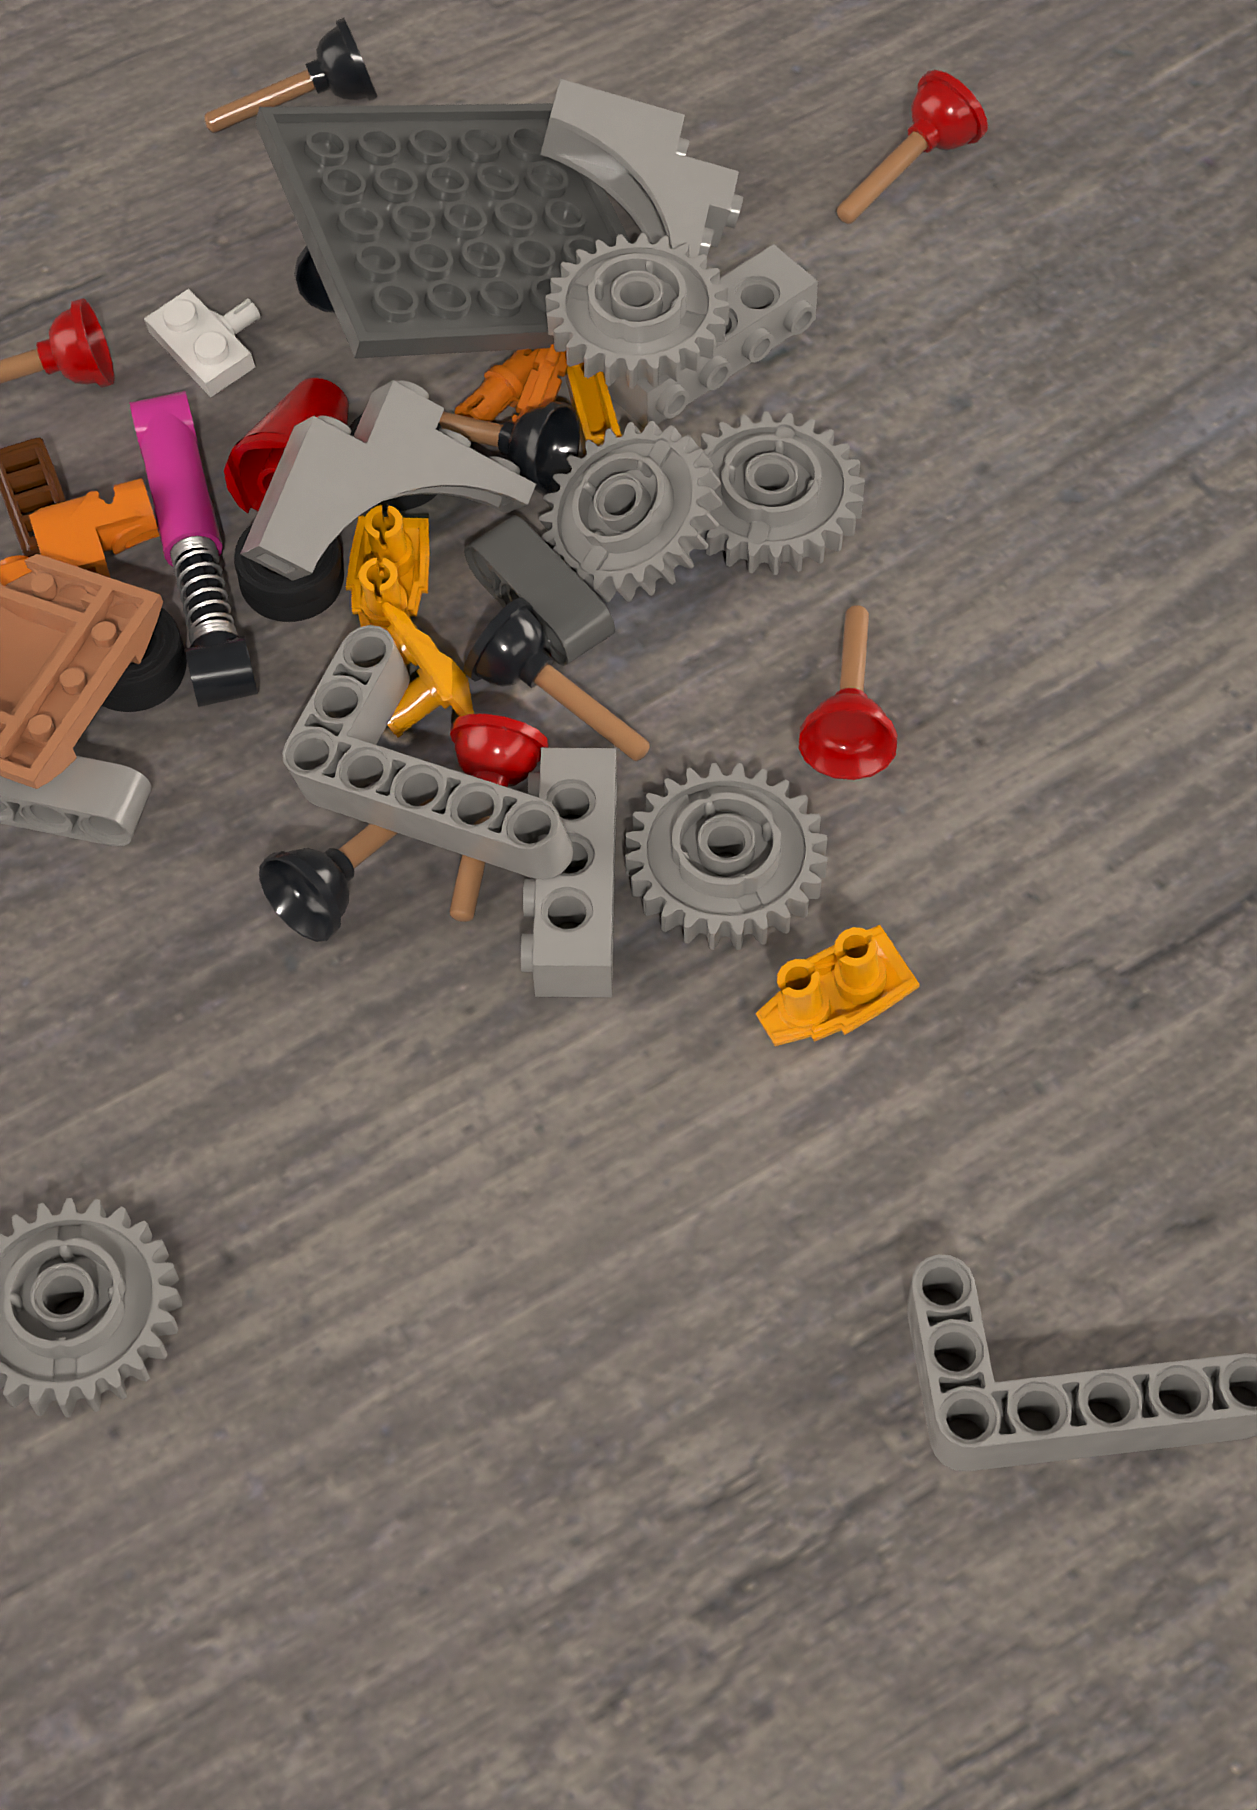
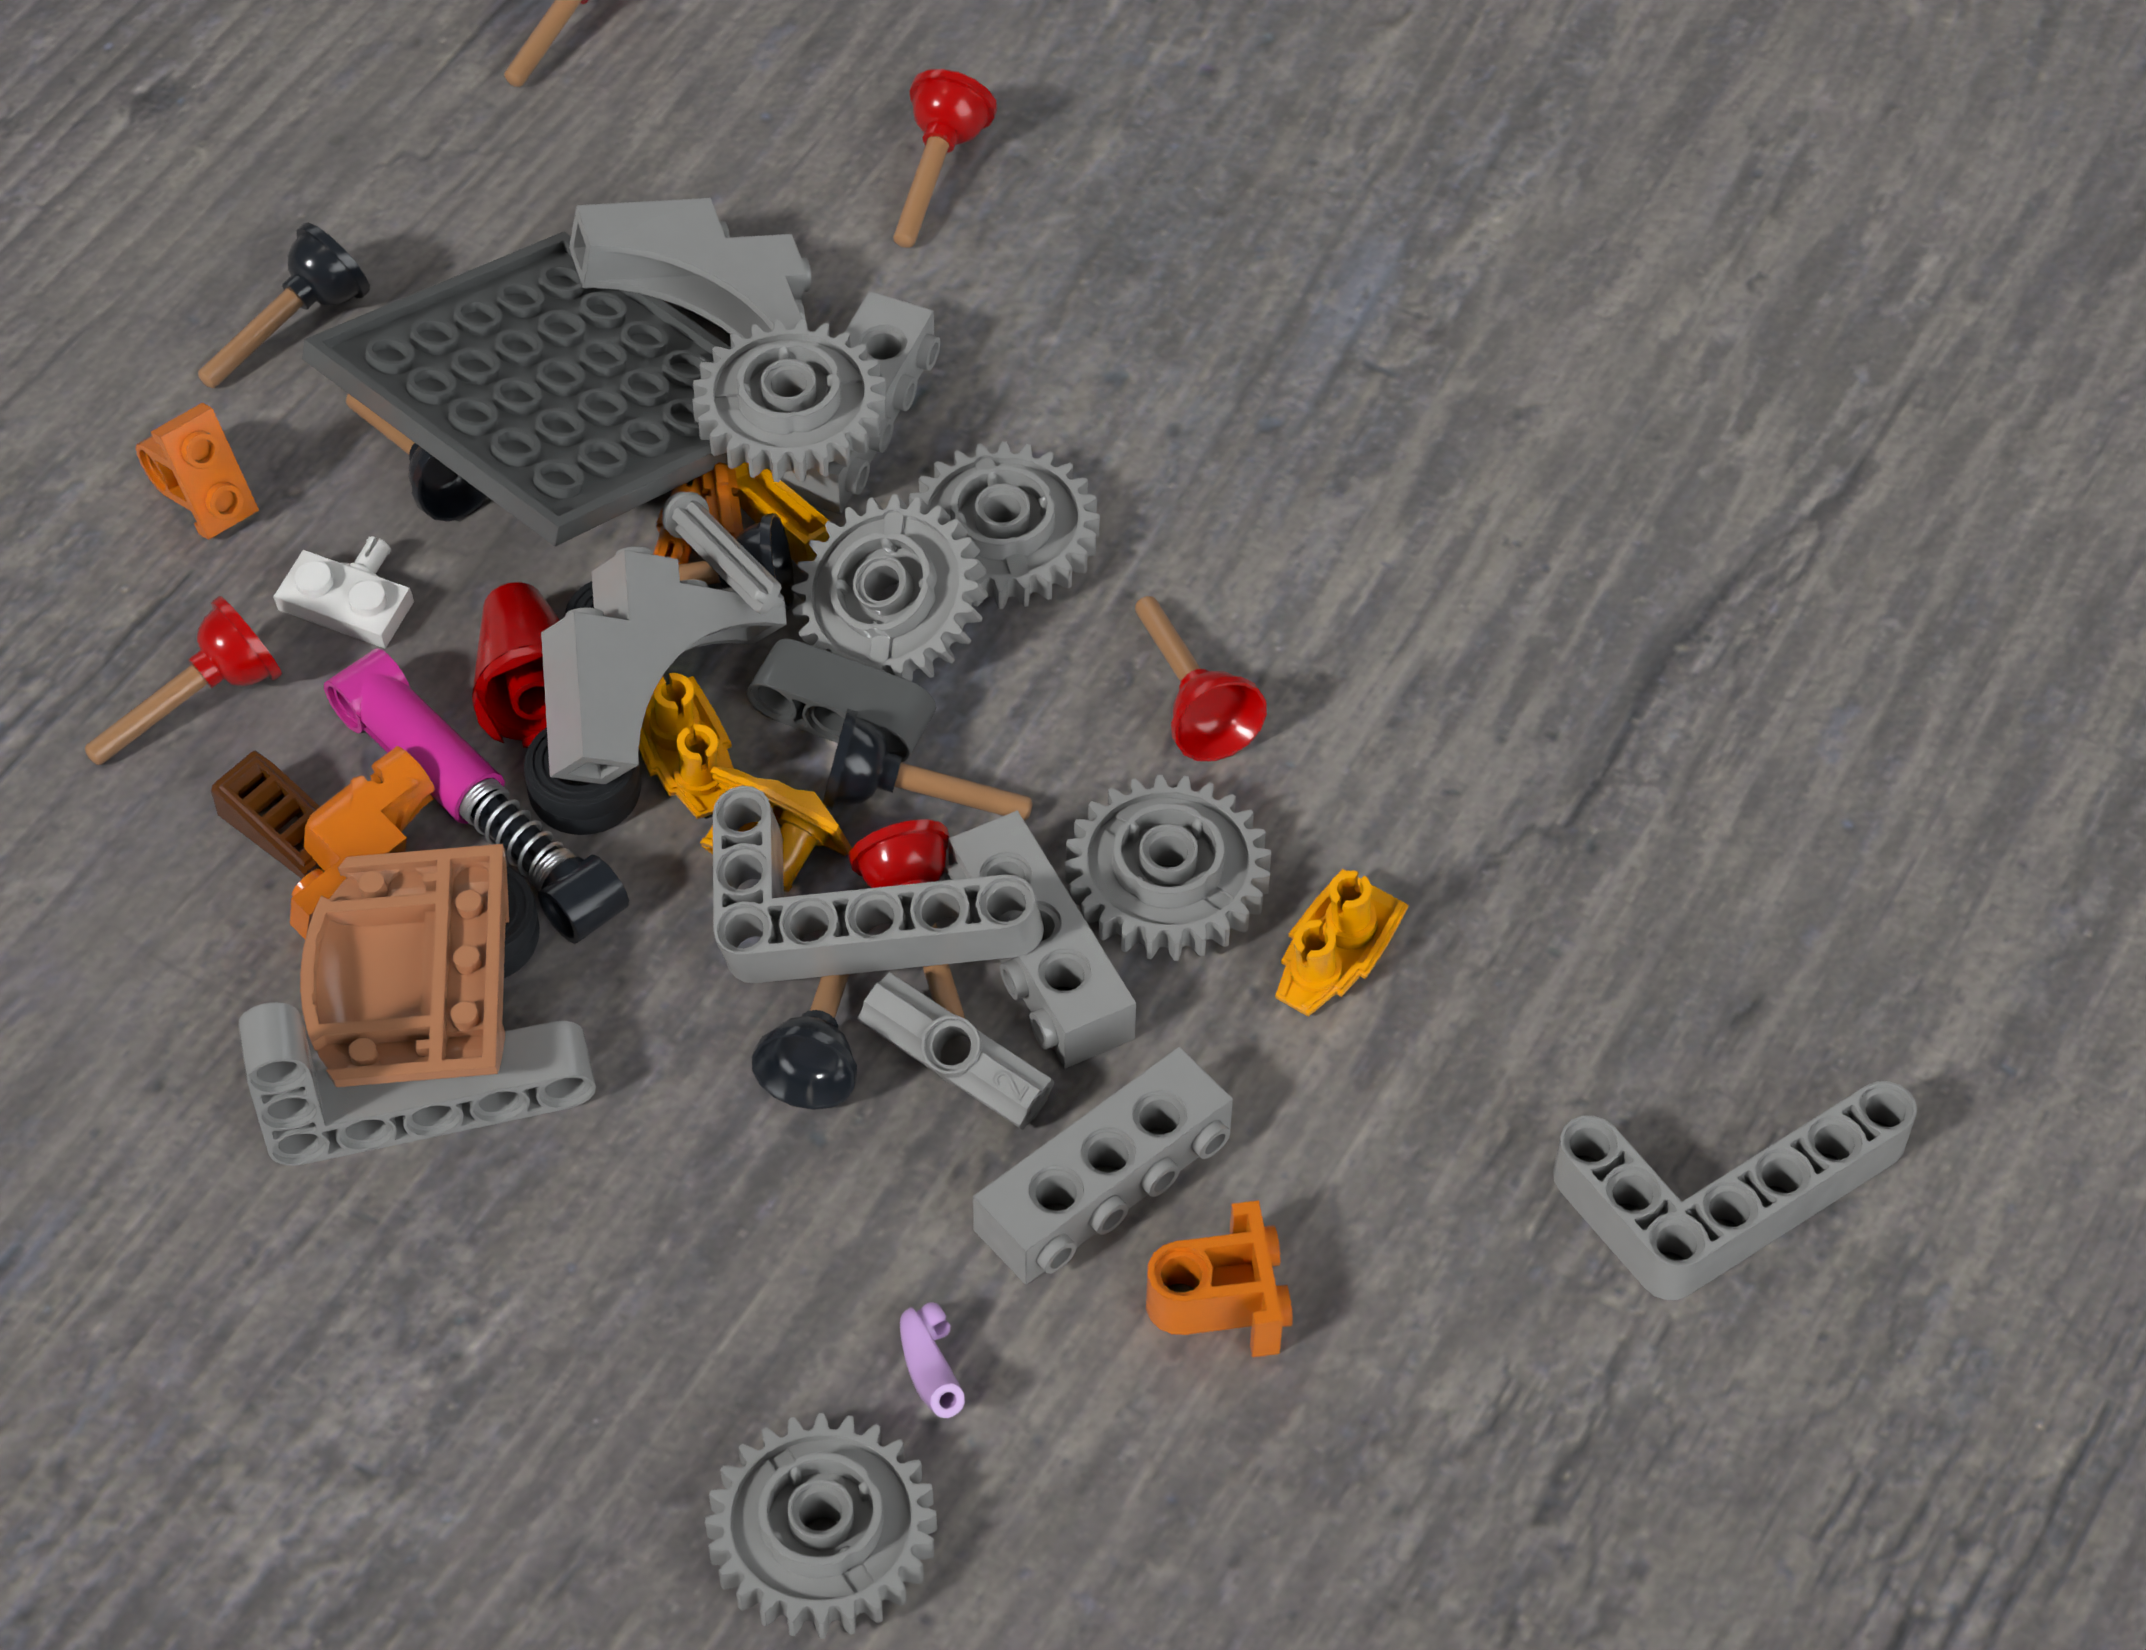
camera: 30 degrees left, 5 degrees down
(144, 192) = (198, 470): none -> orange pin
(248, 1205) = (926, 1363): none -> lavender arm
(456, 966) = (988, 1072): none -> light grey piece
(498, 381) = (688, 517): none -> light grey axle
(525, 1072) = (1115, 1133): none -> light grey brick
(548, 1256) = (1229, 1283): none -> orange pin

